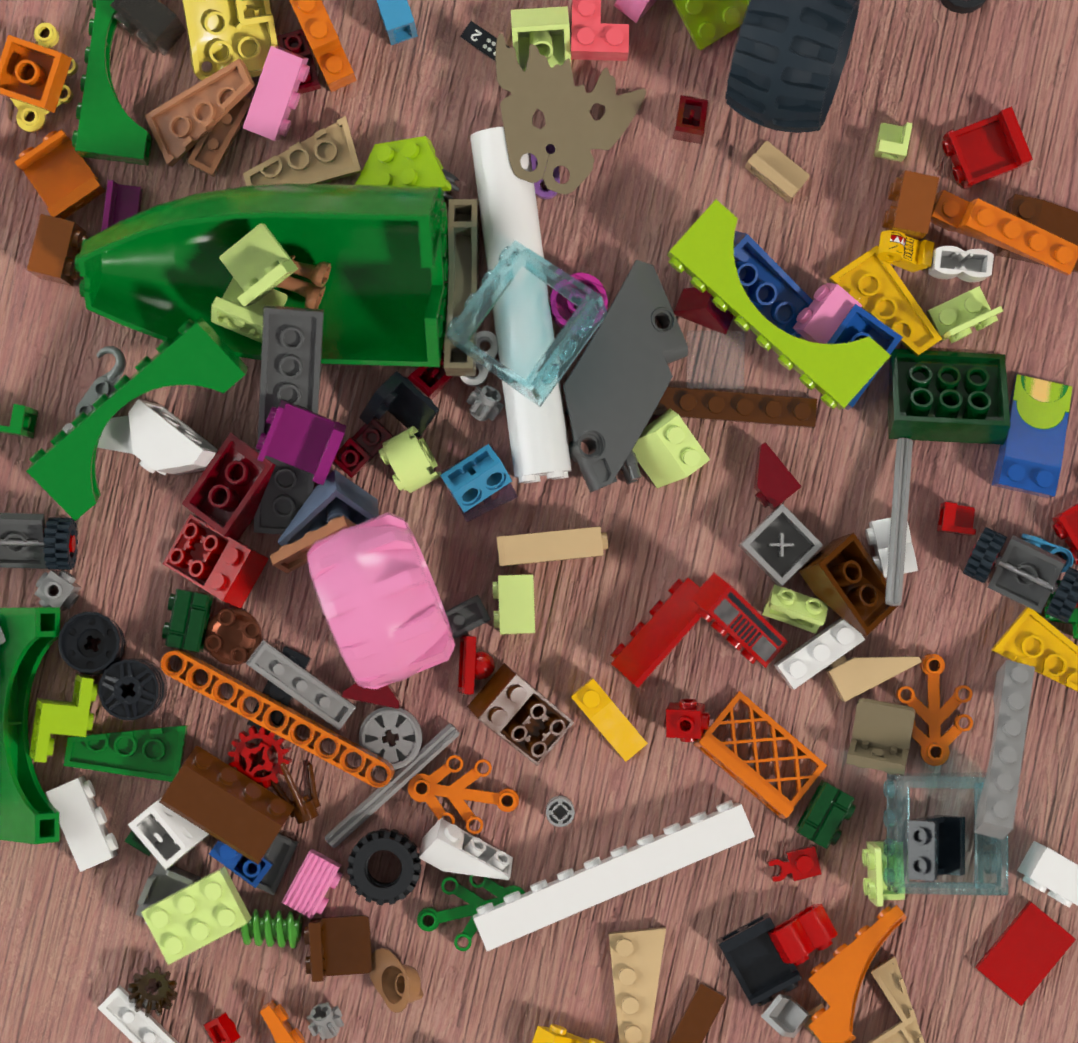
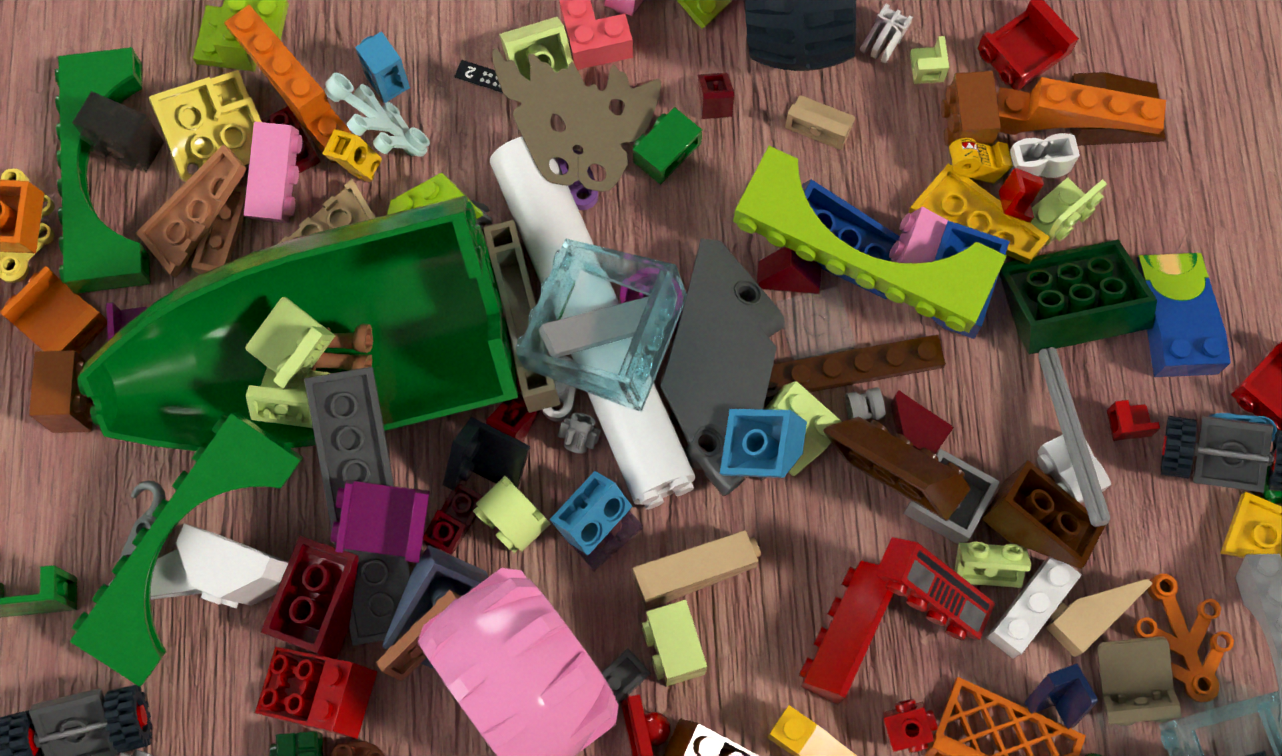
camera: 15 degrees left, 15 degrees down
(350, 96) = (352, 154): none -> yellow leg
(404, 91) = (378, 118): none -> light aqua plant
(520, 325) = (592, 328): none -> light grey tile
(632, 159) = (666, 145): none -> green brick
(632, 462) = (762, 442): none -> dark azure slope
(727, 445) = (865, 405): none -> light grey wheel
(743, 509) = (900, 465): none -> reddish brown slope
(820, 727) = (1067, 691): none -> dark blue panel
(864, 101) = (887, 31): none -> white arm
(928, 292) = (1018, 194): none -> red panel

